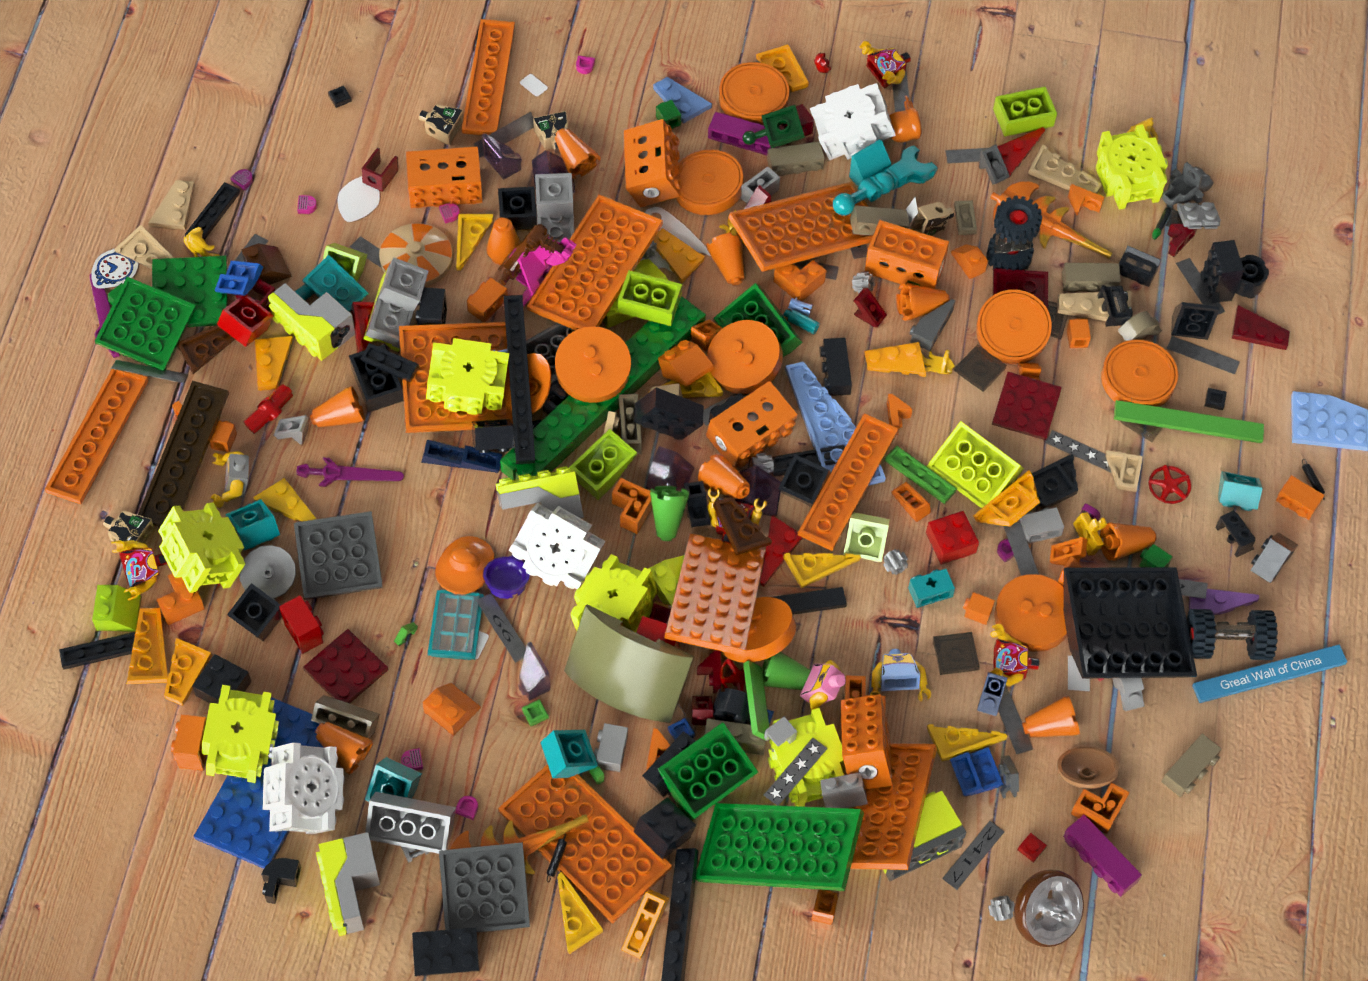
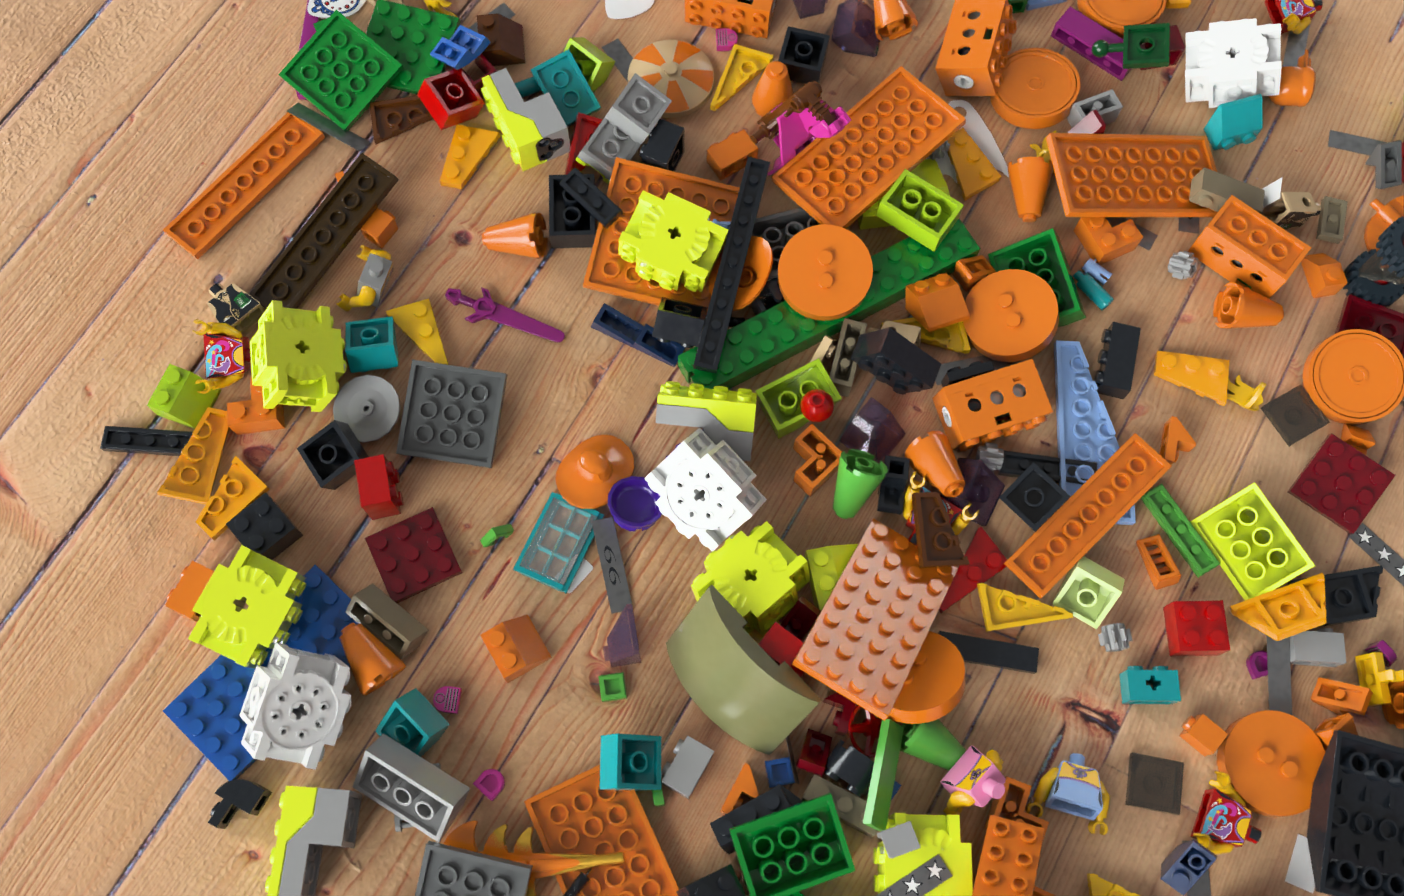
camera: 20 degrees right, 10 degrees up
(268, 408) = (441, 210): red piece -> none
(292, 427) = (460, 242): light grey slope -> none
(555, 204) = (846, 64): light grey piece -> none
(620, 462) = (817, 405): none -> red brick
(796, 158) = (1148, 89): dark tan brick -> none
(869, 308) = (1180, 299): dark red slope -> none
(896, 176) = (1271, 142): teal piece -> none
(931, 326) = (1250, 344): dark grey slope -> none

